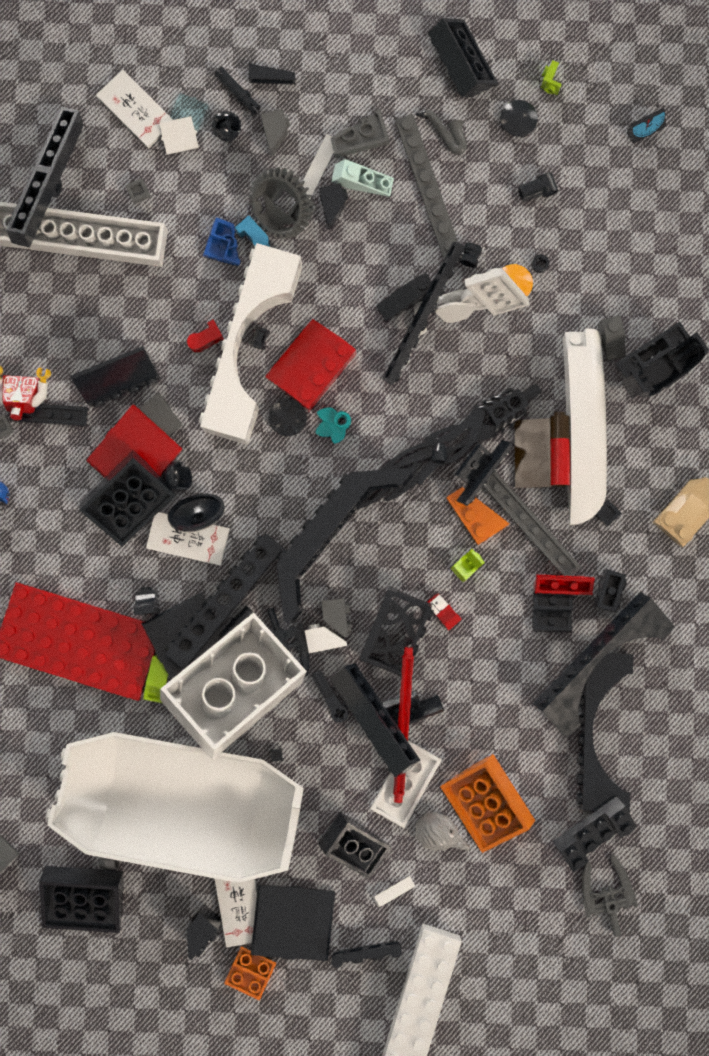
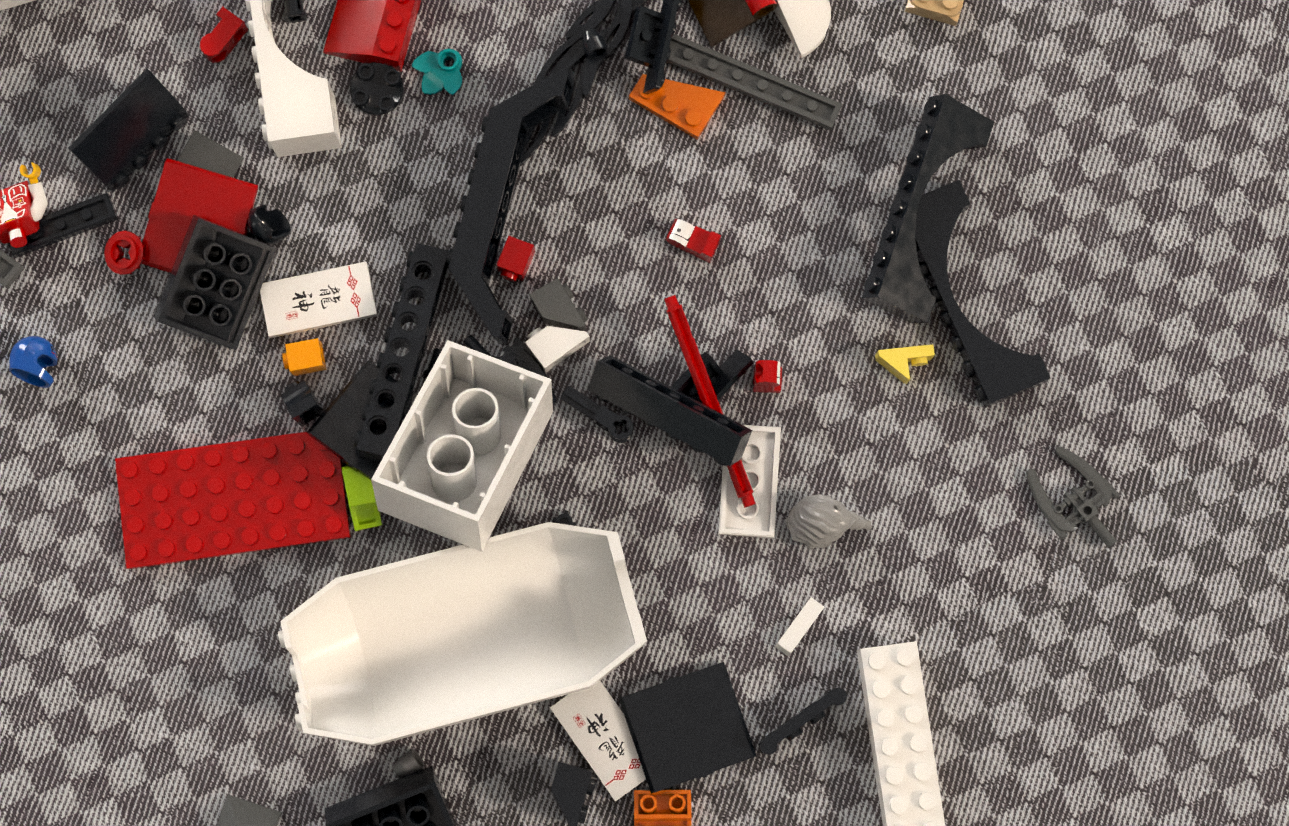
camera: 30 degrees left, 5 degrees down
(74, 448) = (113, 252): none -> red gear
(162, 573) = (304, 357): none -> light orange brick
(196, 512) = (314, 257): black dish -> none
(323, 571) = (515, 259): none -> red brick
(354, 846) = (720, 589): black slope -> none
(390, 606) = (618, 262): black fence -> none
(448, 724) = (767, 376): none -> red leg
(467, 565) = (696, 166): lime bracket -> none
(488, 804) = (866, 455): orange slope -> none
(537, 752) = (897, 359): none -> light yellow slope
(552, 612) = (832, 177): black slope -> none
(564, 584) = (829, 134): red slope -> none
(593, 831) = (1018, 423): black piece -> none
(608, 513) = (842, 23): black plate -> none
(610, 591) = (891, 115): black brick -> none

